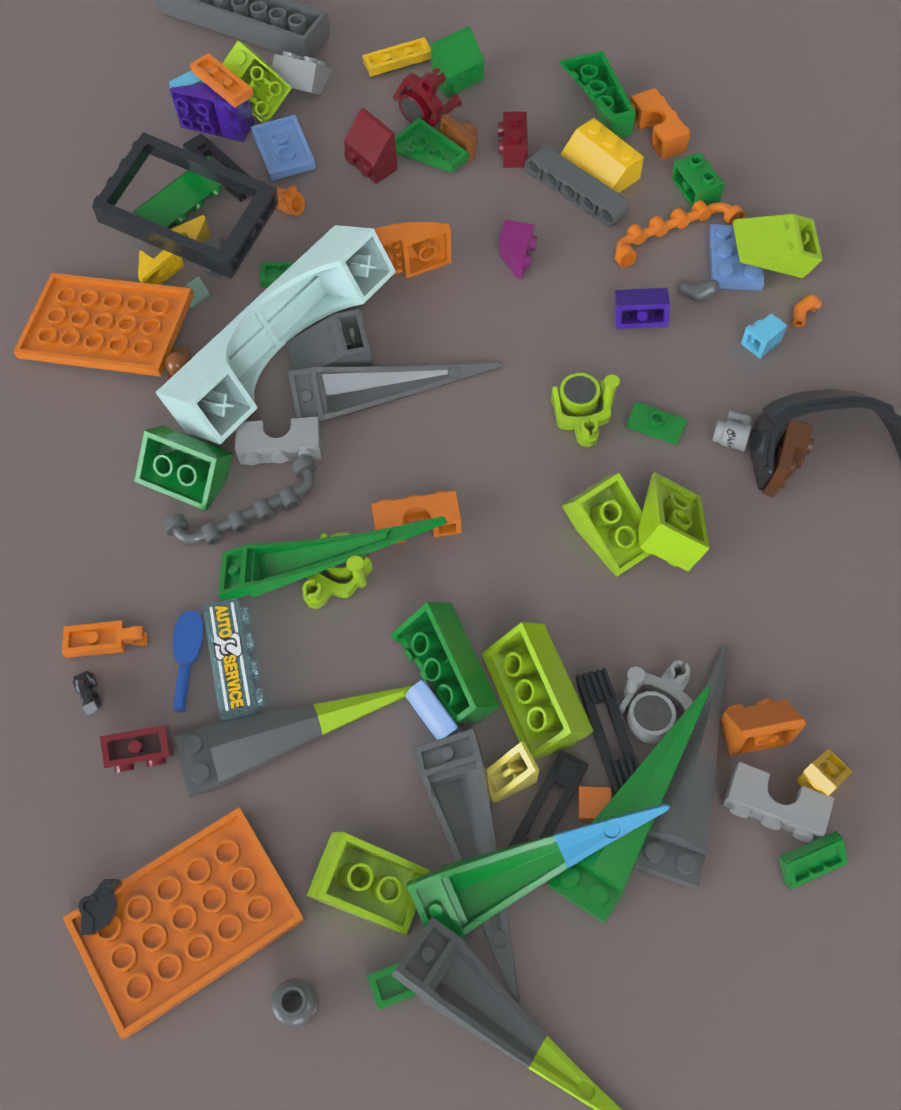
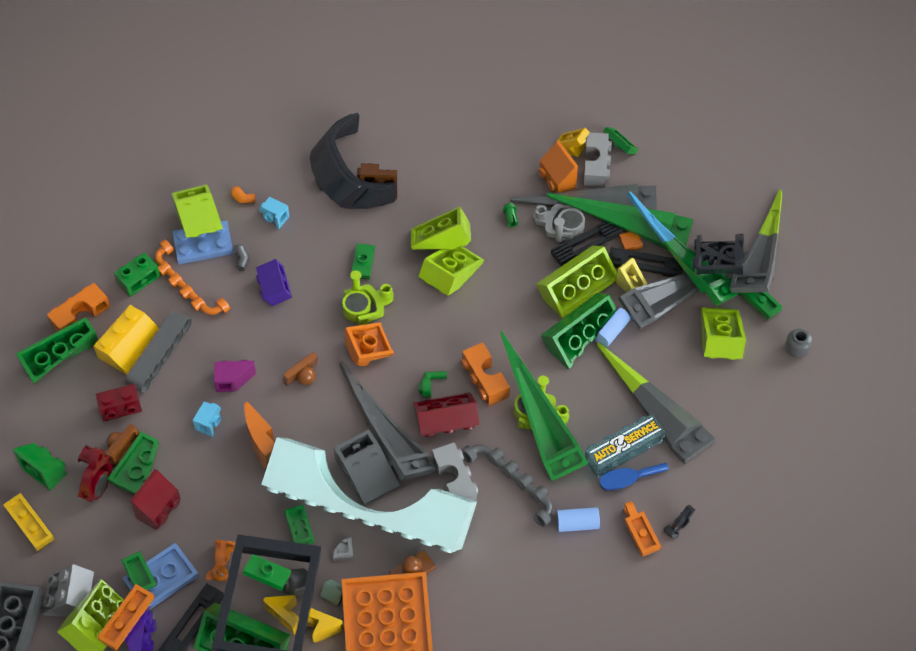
camera: 110 degrees left, 5 degrees down
(99, 907) = (798, 453): black piece -> none
(136, 746) = (701, 472): dark red brick -> none
(157, 568) = (578, 519): none -> light blue brick
(182, 466) = (495, 530): green slope -> none
(185, 923) = (782, 415): orange plate -> none
(211, 199) = (267, 572): none -> green plate
(235, 308) = (343, 550): none -> light grey tile
(289, 123) = (138, 571): none -> green tile
(374, 455) = (446, 414): none -> dark red slope
(423, 444) = (425, 385): none -> green plate
(463, 213) = (207, 418): none -> medium azure brick
(496, 316) = (302, 371): none -> dark orange tile
(512, 392) = (367, 343): none -> orange slope
(540, 915) = (724, 252): none -> black fence
(691, 634) = (510, 213): none -> green pin
(733, 431) = (361, 216): light grey piece -> none

